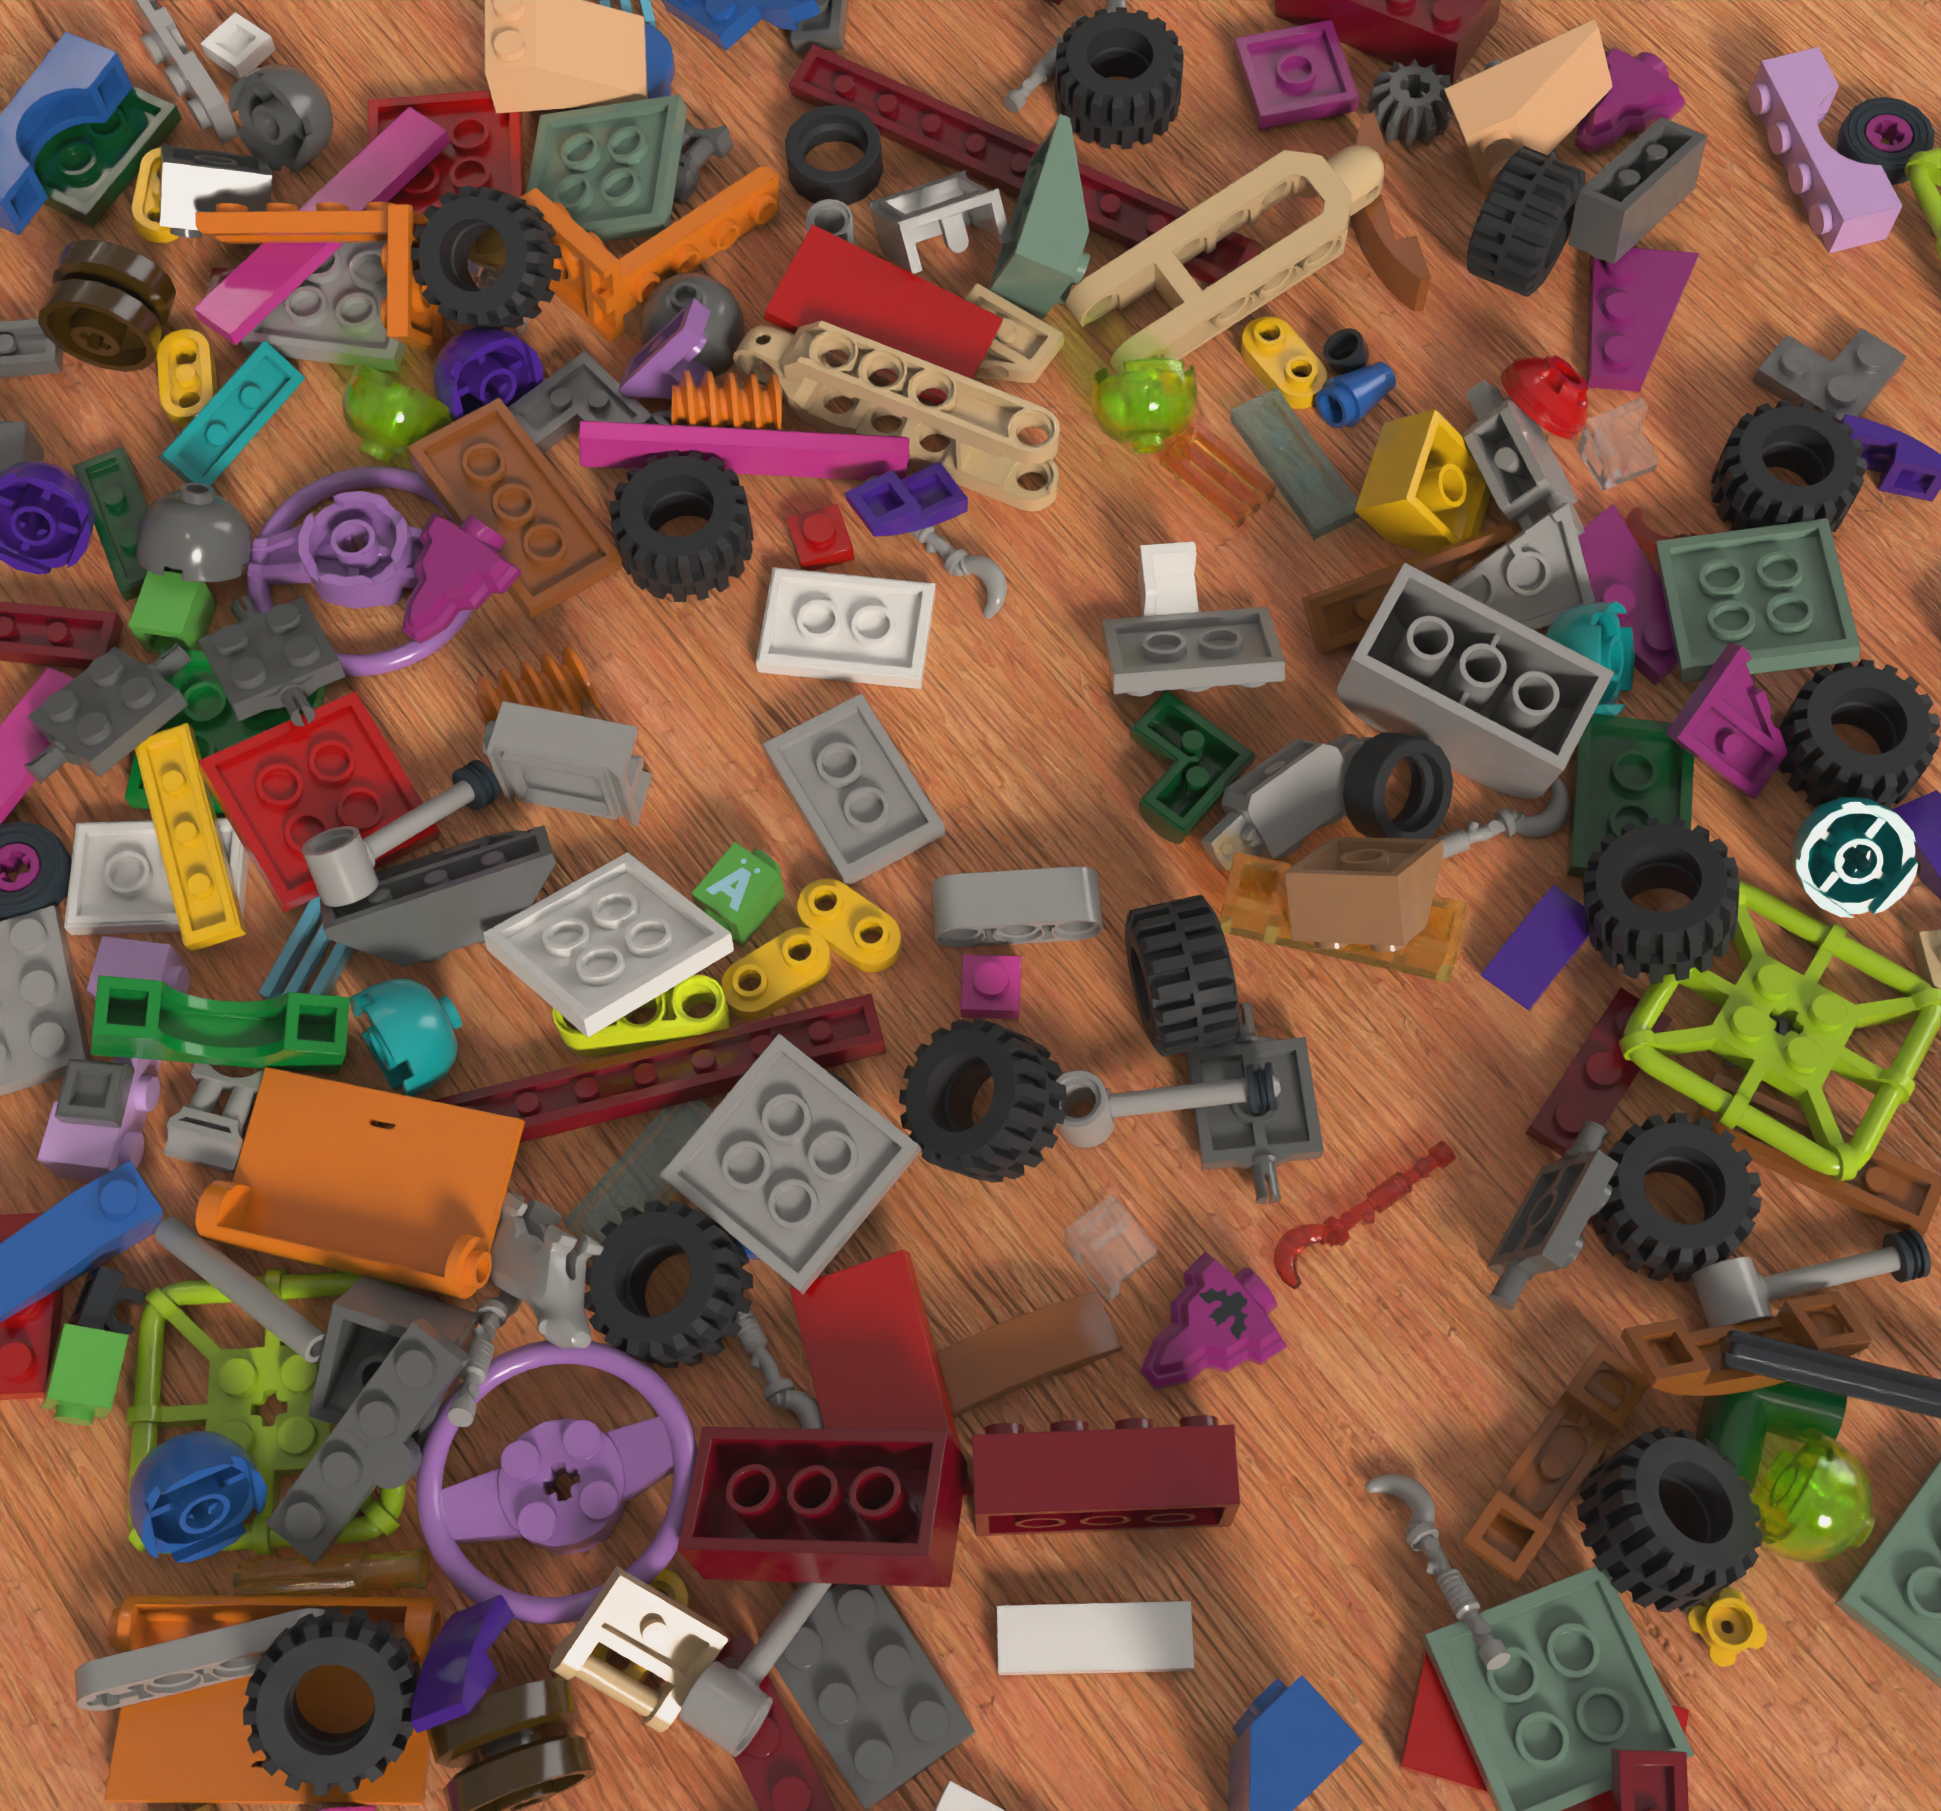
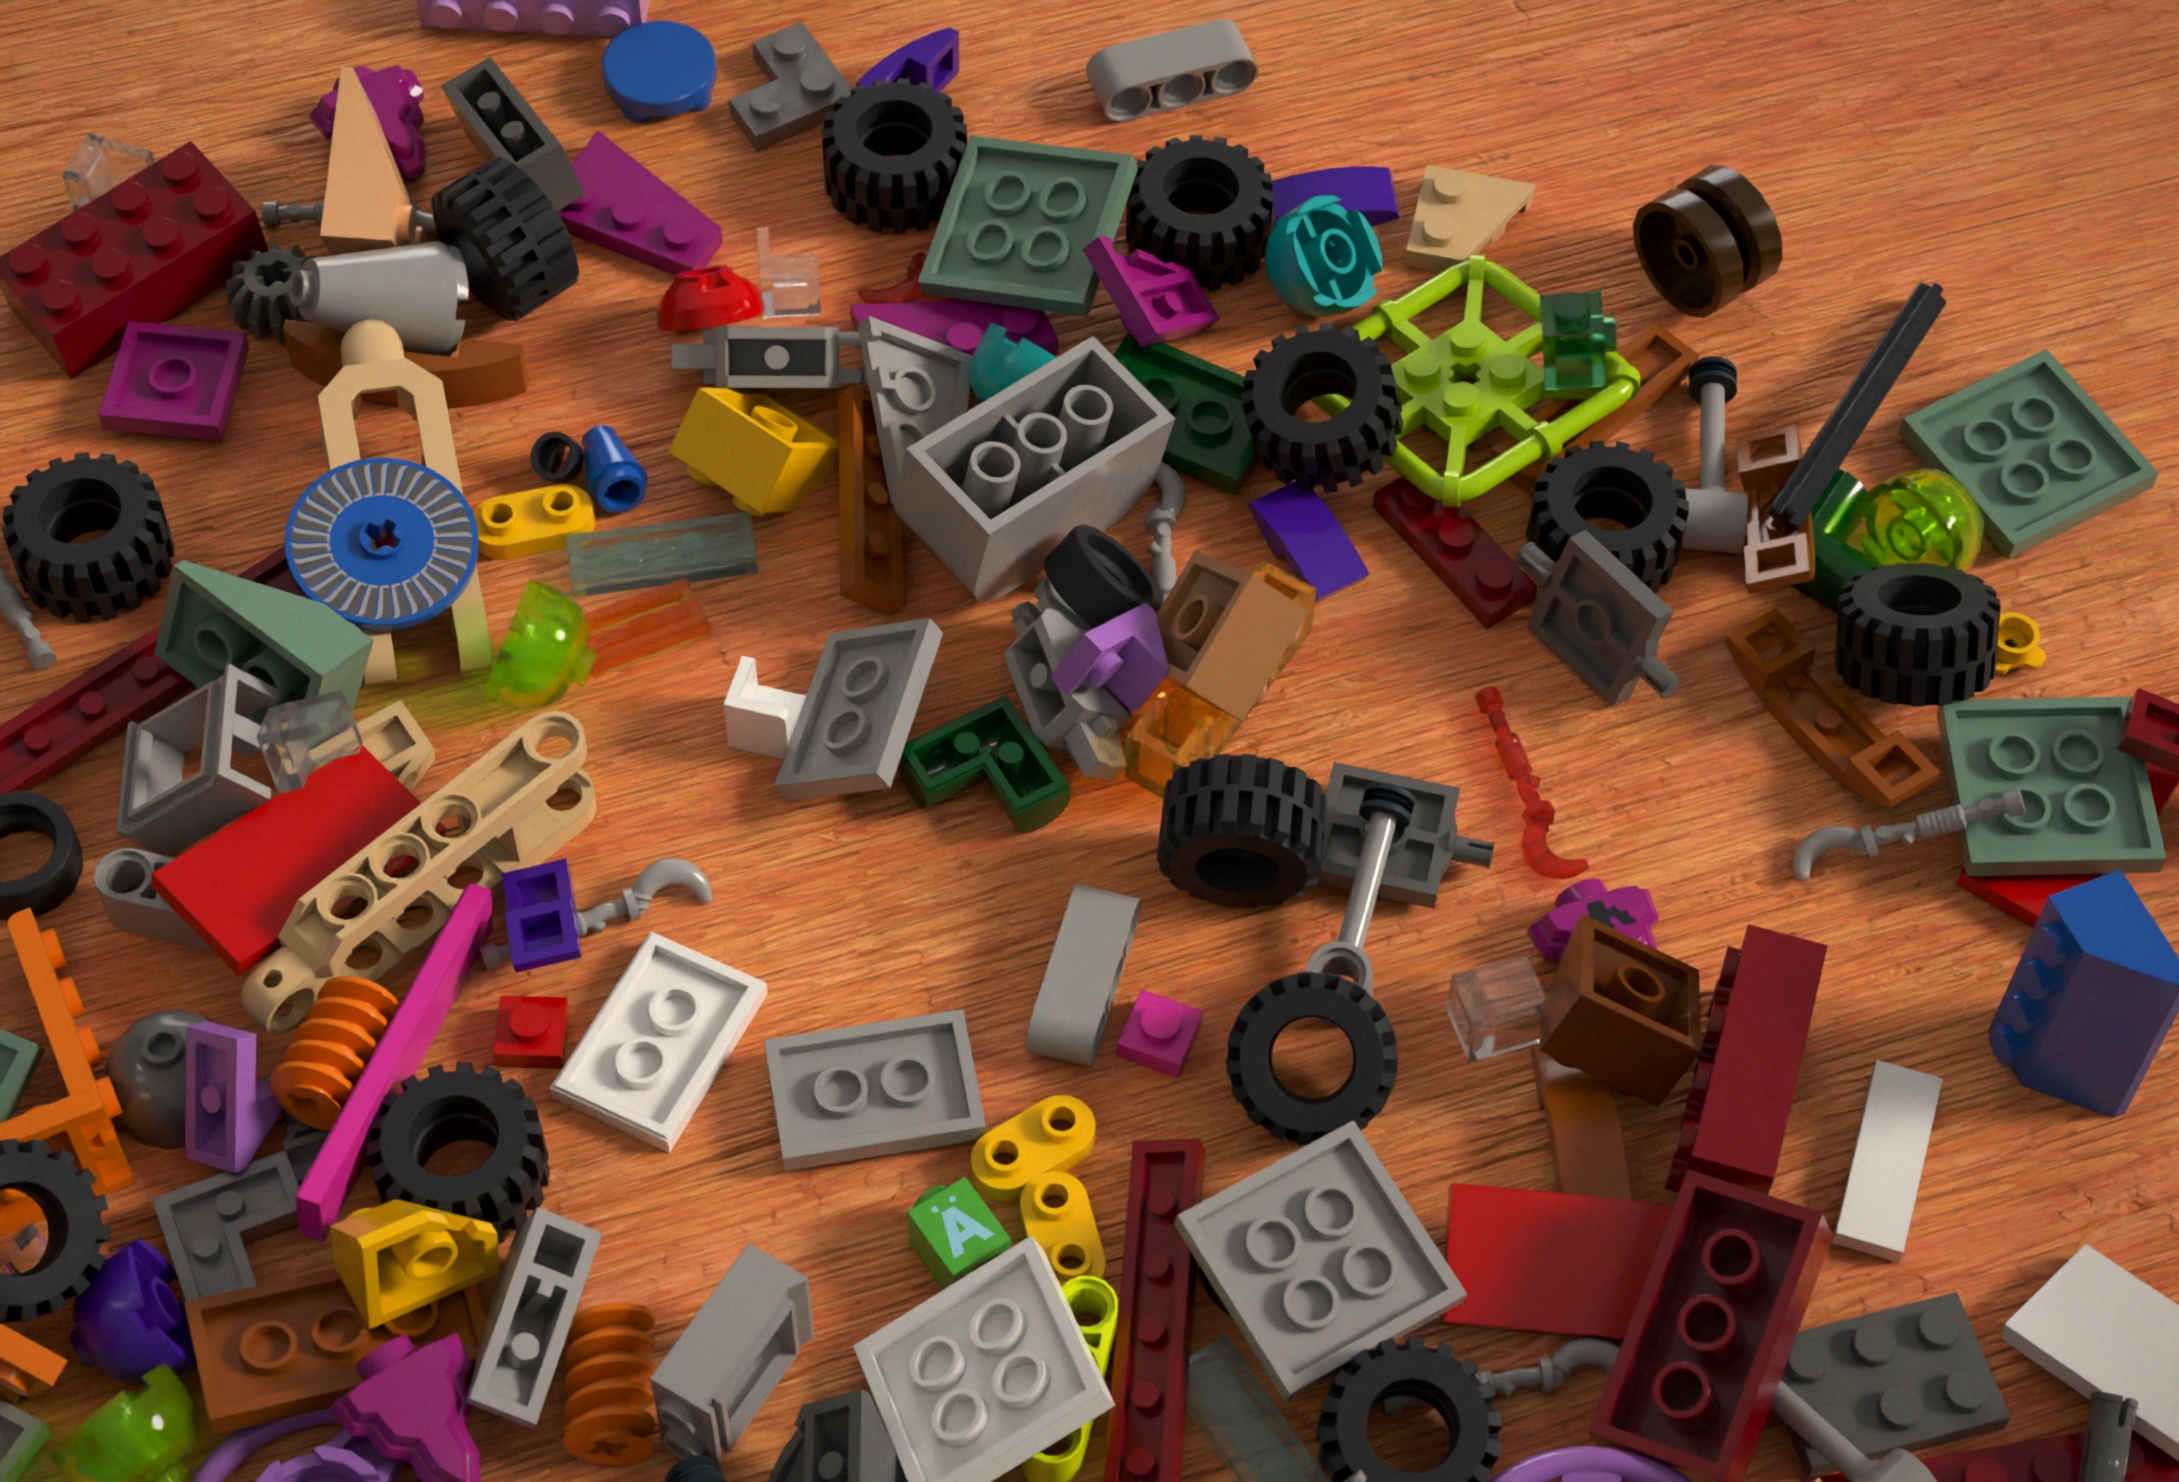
camera: 75 degrees left, 10 degrees down
(555, 618) = (531, 1315): none -> light grey slope
(567, 511) = (409, 1257): none -> yellow slope
(974, 269) = (305, 734): none -> clear panel
(1126, 1346) = (1622, 1012): none -> reddish brown slope
(1207, 267) = (375, 498): none -> piece
(1315, 816) = (1121, 654): none -> medium lavender slope
(1422, 159) = (401, 285): none -> light grey cone
(1791, 273) = (659, 70): none -> blue tile
(1847, 1094) = (1575, 340): none -> clear green brick

